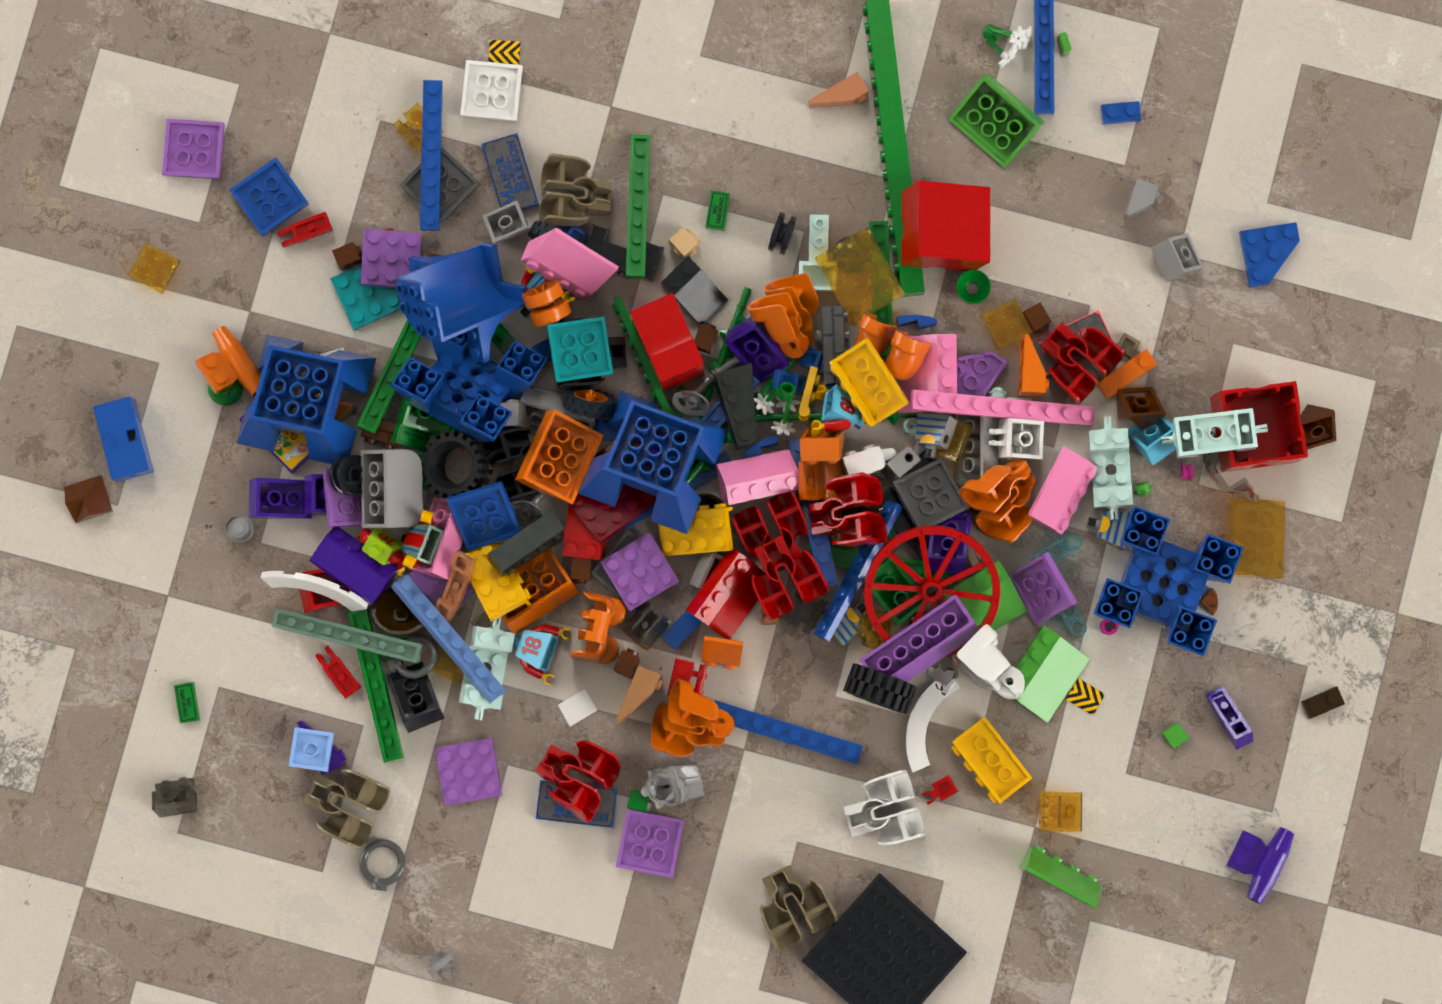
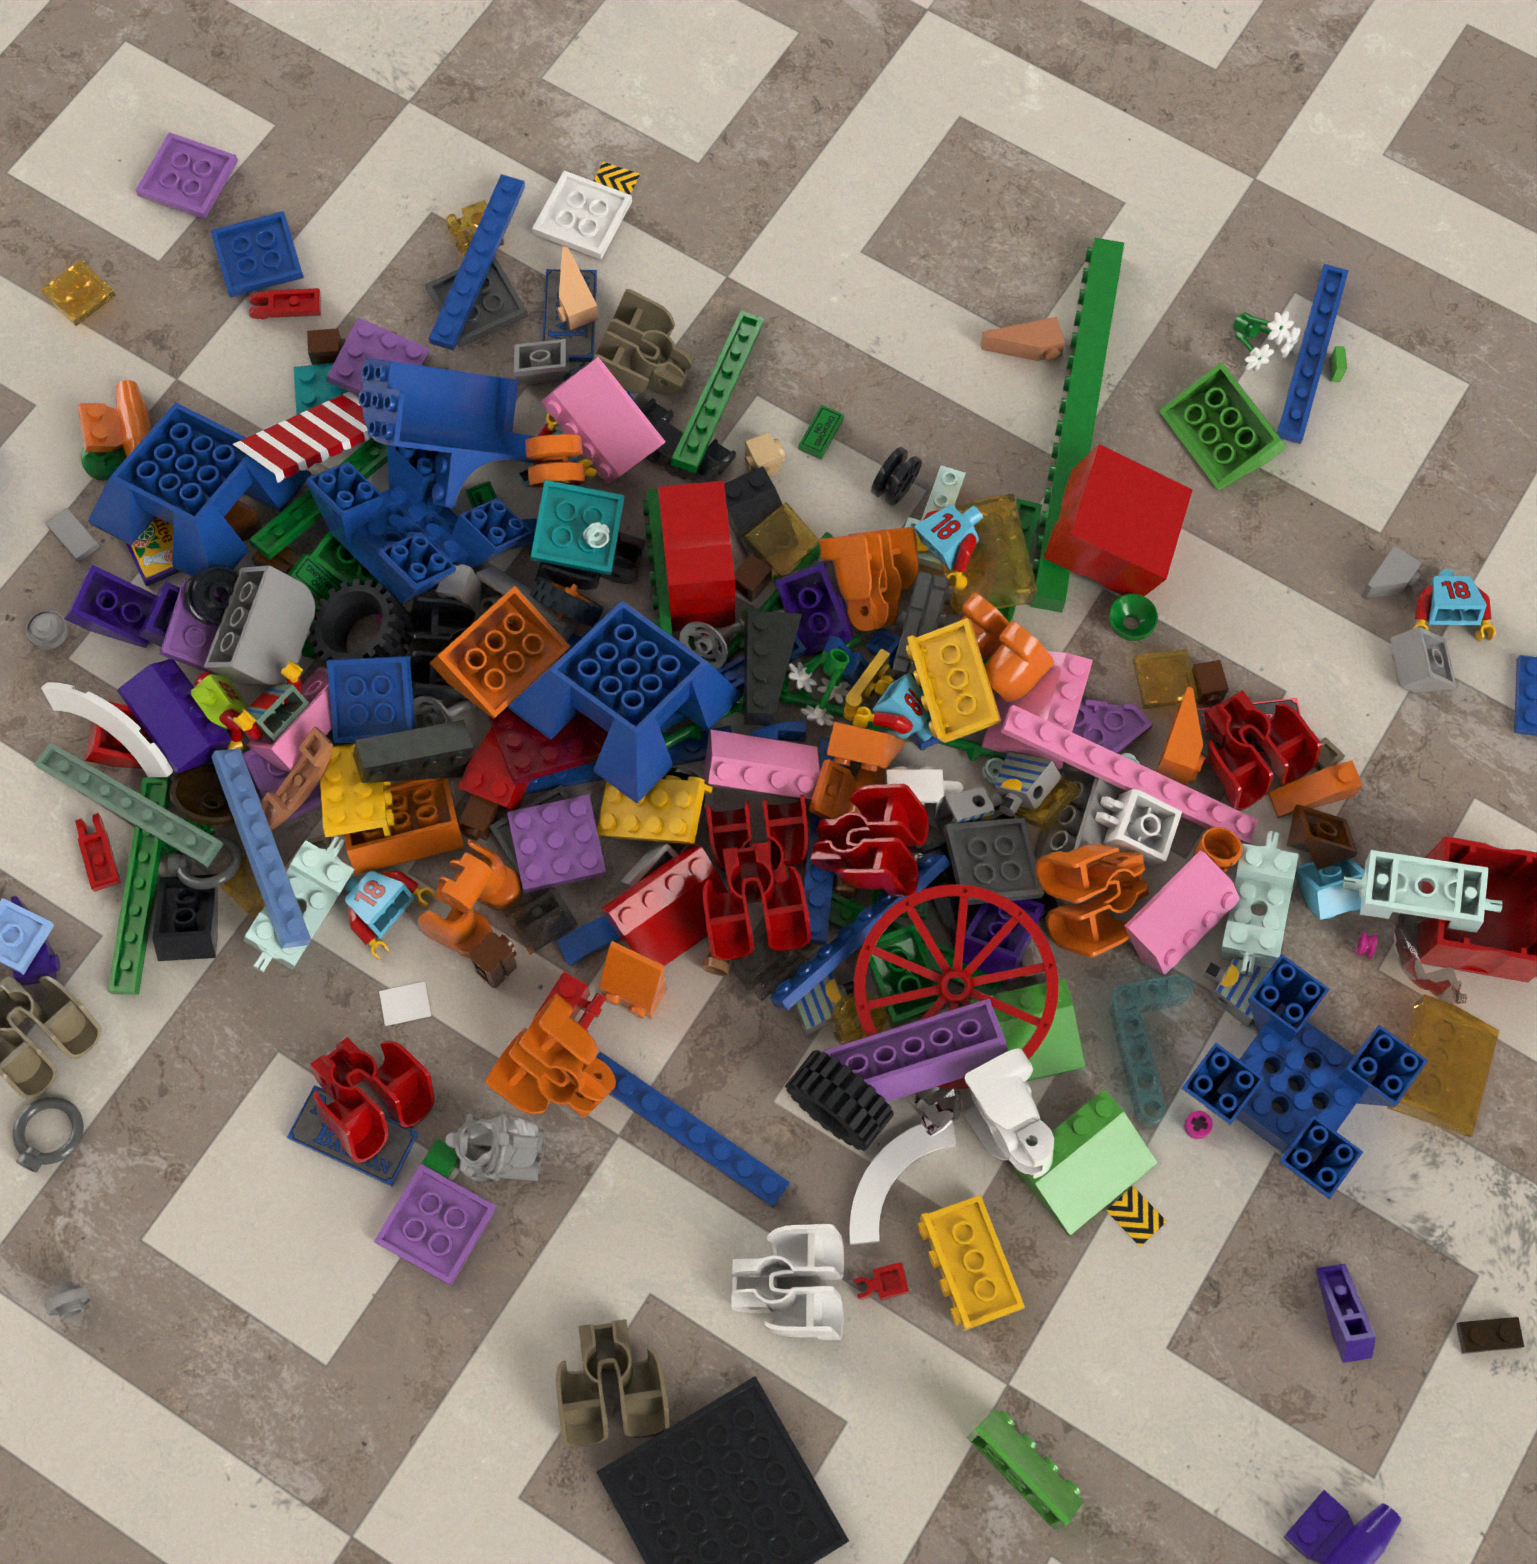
camera: 15 degrees right, 15 degrees down
(227, 453) = (72, 535): none -> light grey tile
(370, 337) = (308, 437): none -> red sticker
(468, 771) = (219, 1043): medium lavender plate -> none
(512, 165) = (575, 298): none -> light nougat slope
(596, 353) = (596, 540): none -> light aqua plate
(642, 688) = (492, 998): medium nougat slope -> none
(718, 305) = (783, 539): none -> clear yellow plate
(835, 275) = (950, 539): none -> torso
(921, 321) = (1049, 638): blue slope -> none
(1042, 588) = (1116, 1035): medium lavender plate -> none
(1060, 811) = (1053, 1370): clear yellow slope -> none
(1074, 438) = (1220, 847): none -> orange helmet
(1120, 112) = (1391, 467): blue plate -> none
(1143, 488) = (1298, 949): bright green plate -> none
(1175, 735) = (1255, 1313): bright green tile -> none
(1187, 207) = (1454, 602): none -> medium azure torso
(1210, 601) = (1356, 1133): dark orange tile -> none

